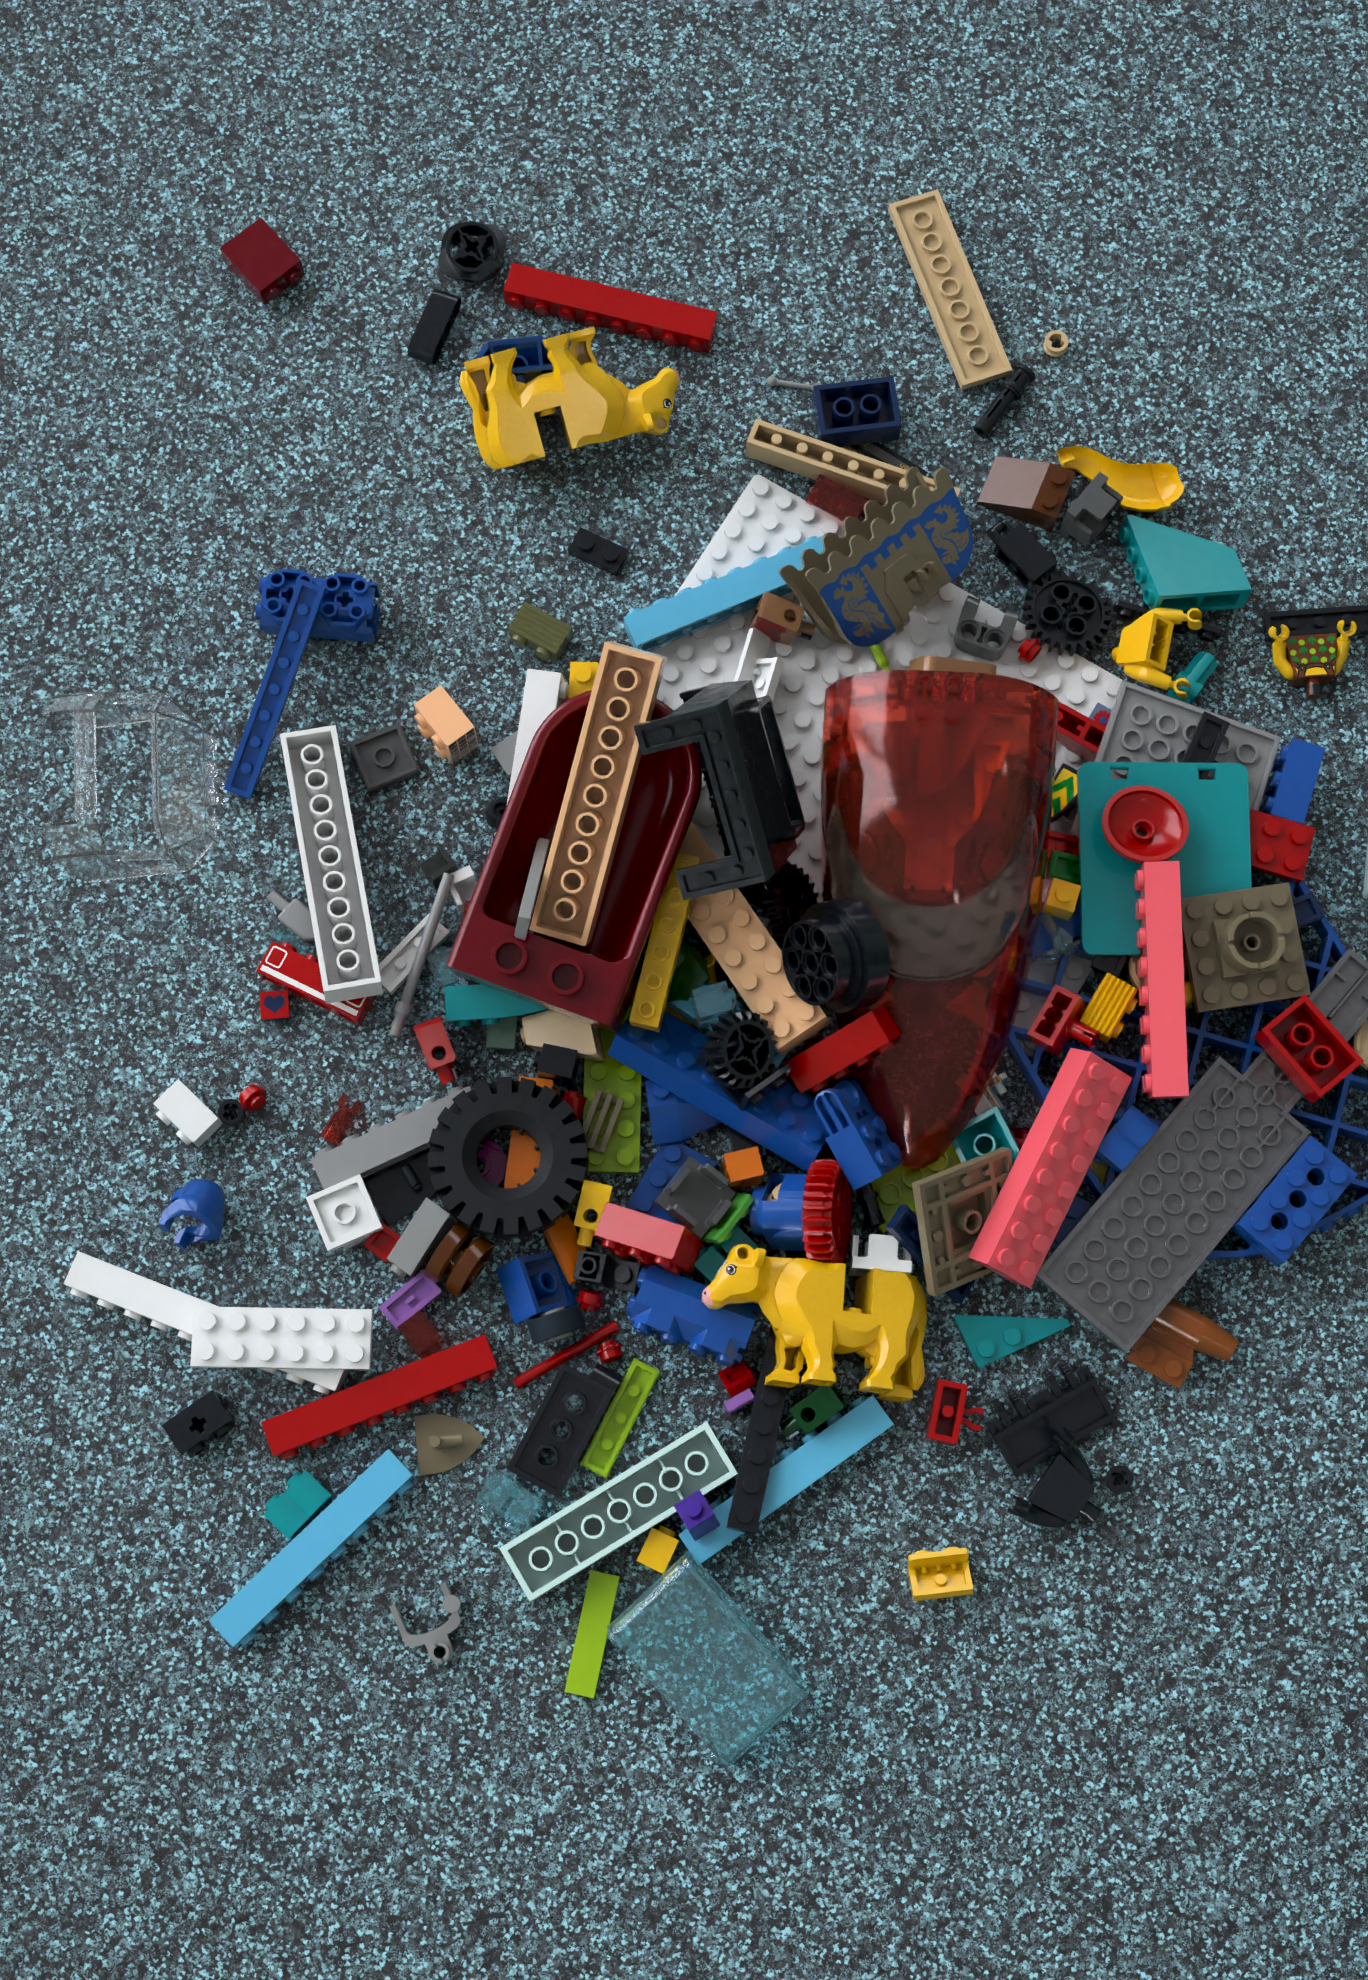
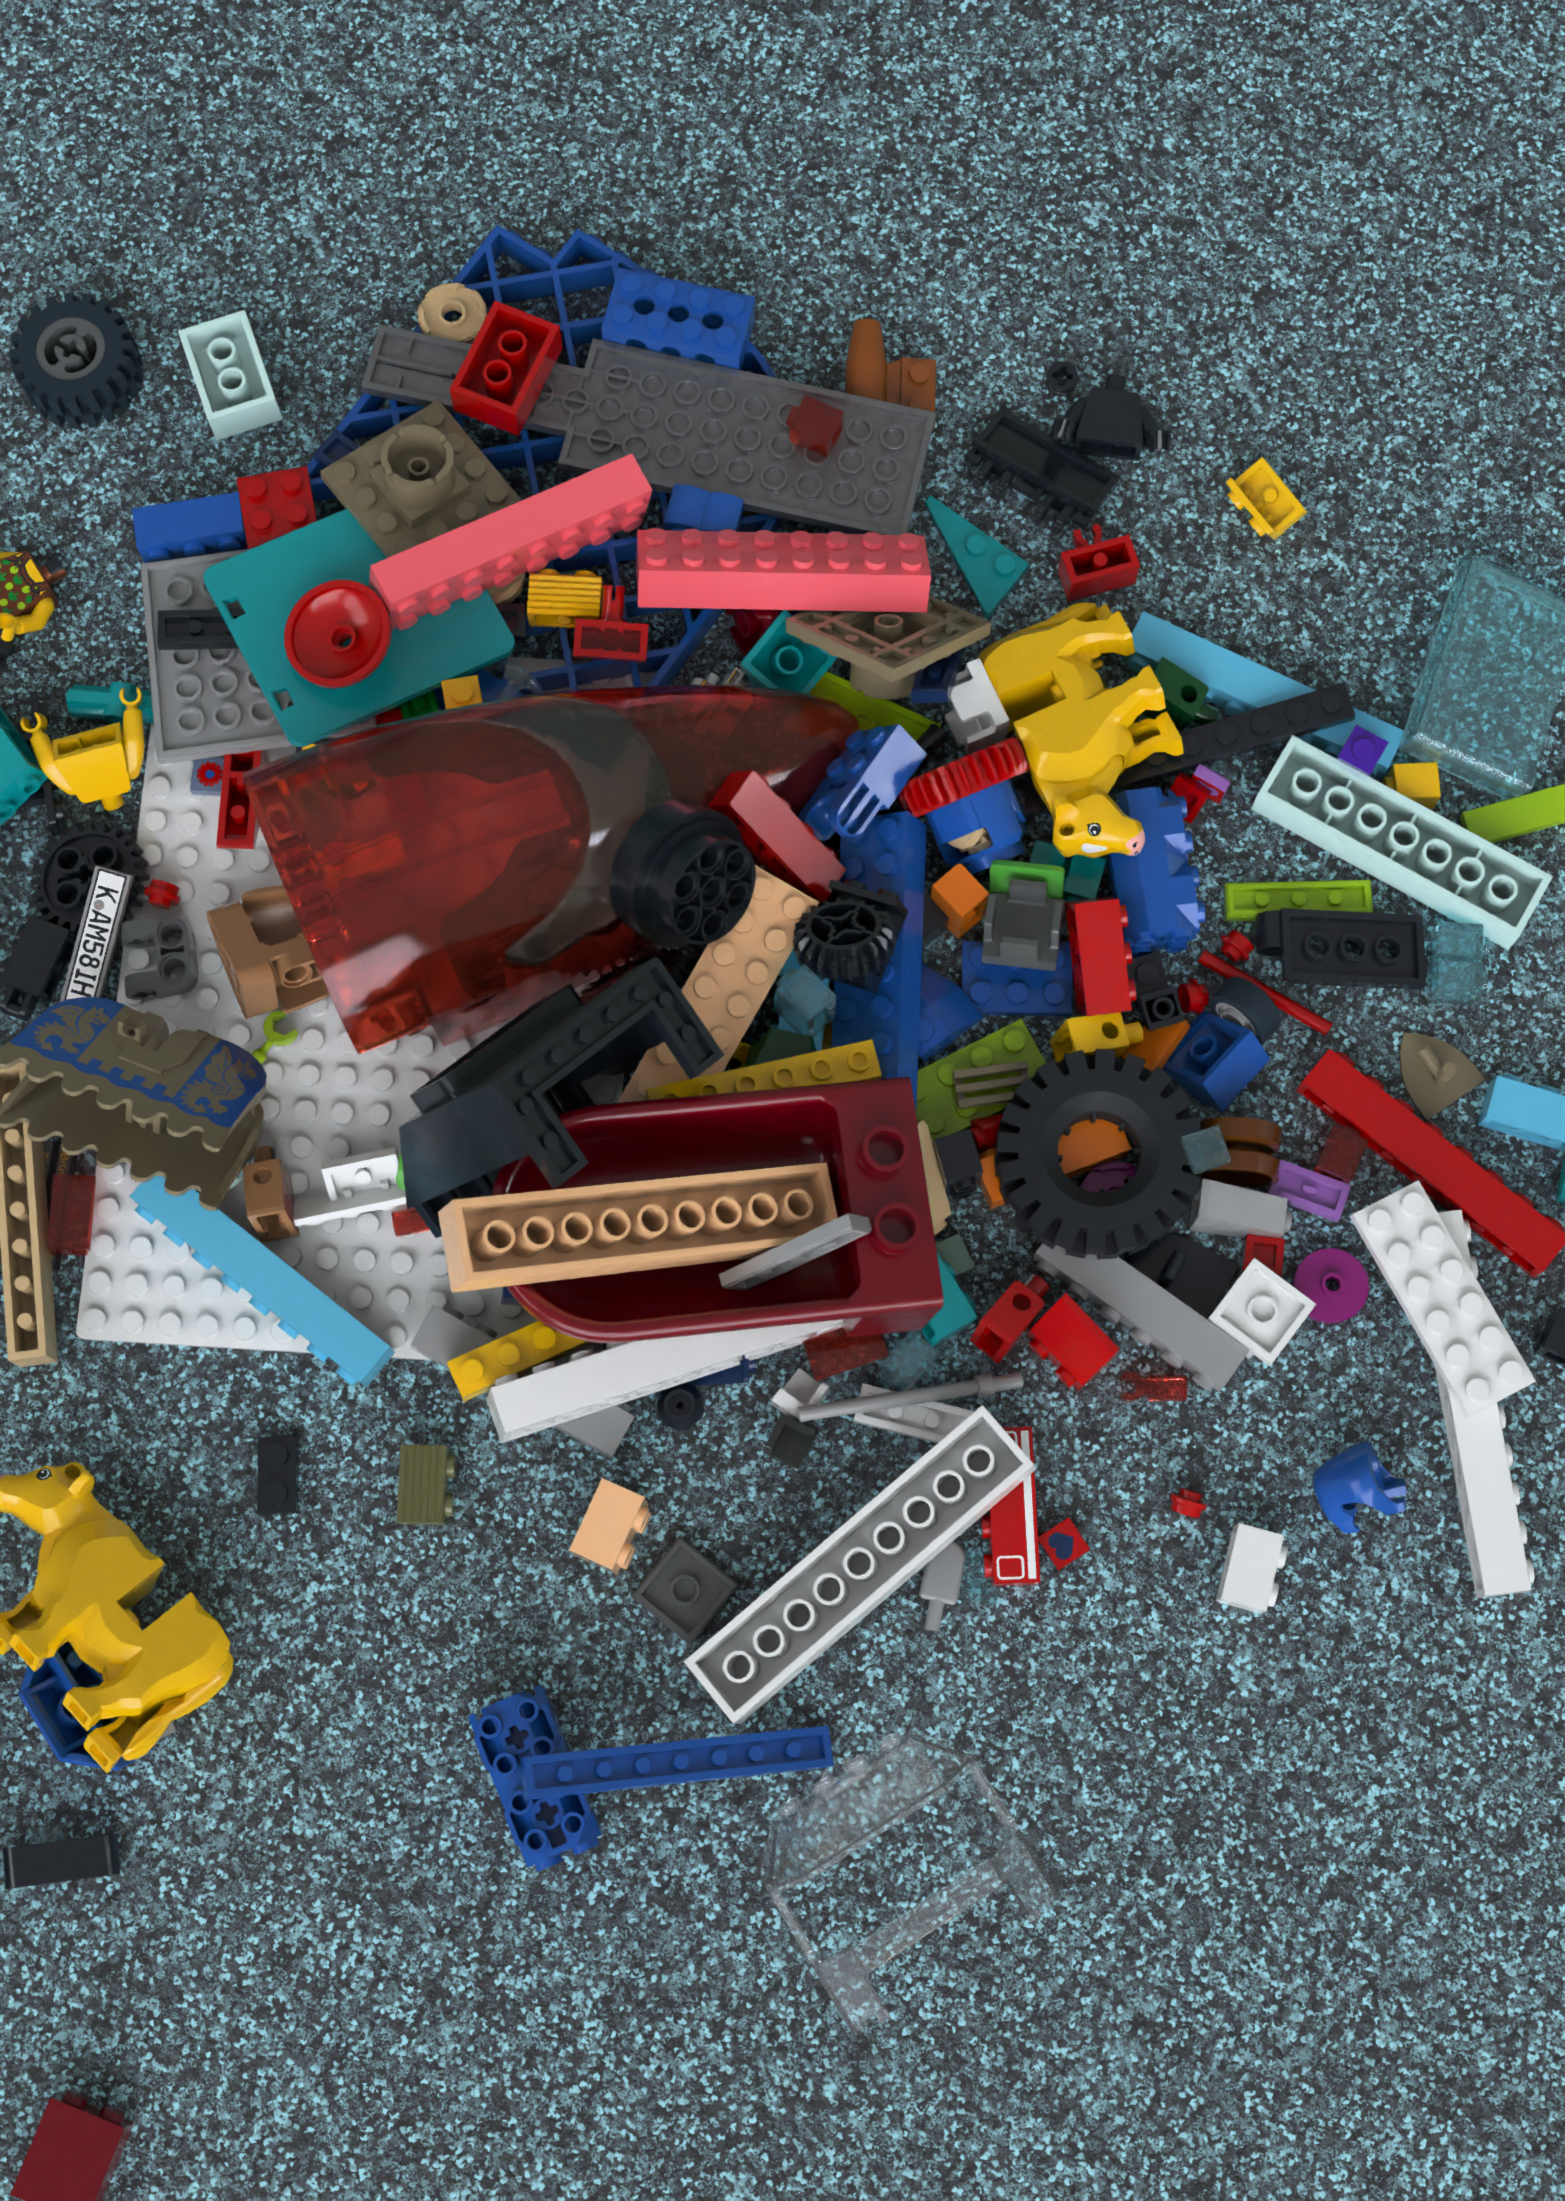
camera: 115 degrees left, 0 degrees up
(222, 1113) = (1223, 1530): black bush -> none
(349, 1289) = (1349, 1275): none -> magenta plate
(396, 1078) = (1071, 1343): none -> red slope
(465, 1223) = (1206, 1149): none -> clear light blue tile
(1017, 595) = (97, 933): none -> tile
(1155, 1251) = (815, 425): none -> clear red brick

